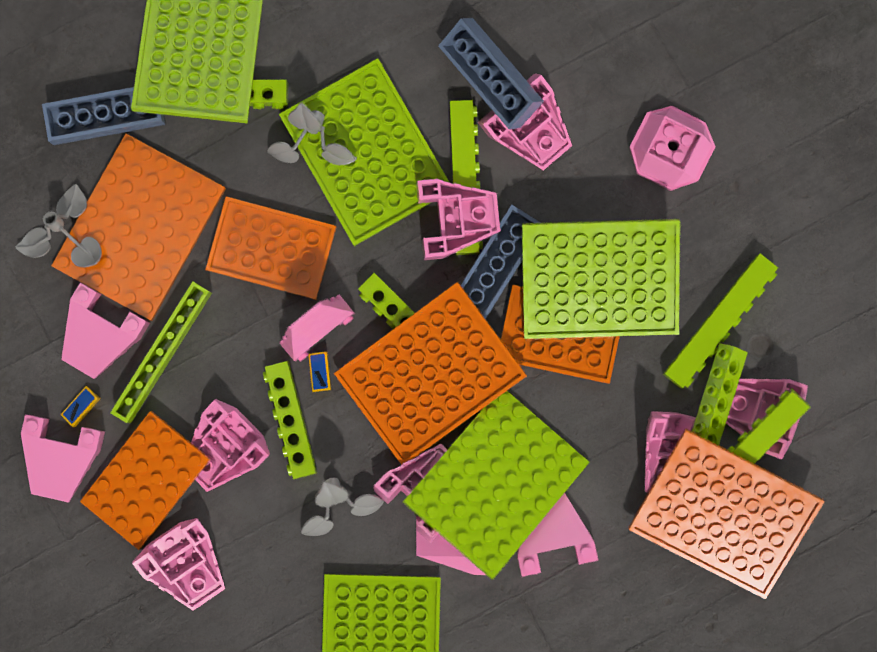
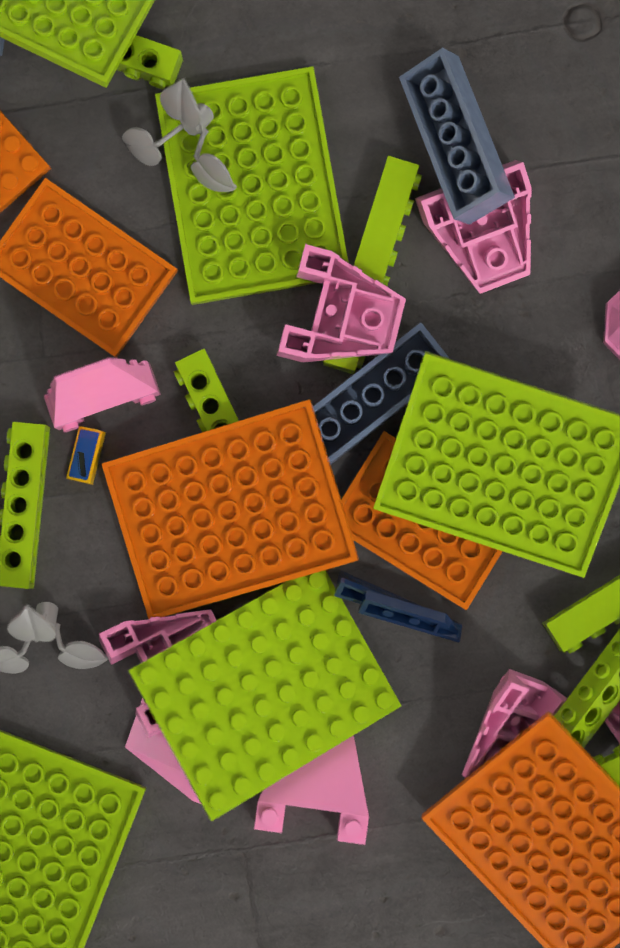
camera: 20 degrees right, 0 degrees up
(562, 400) = (395, 609): none -> dark blue wedge

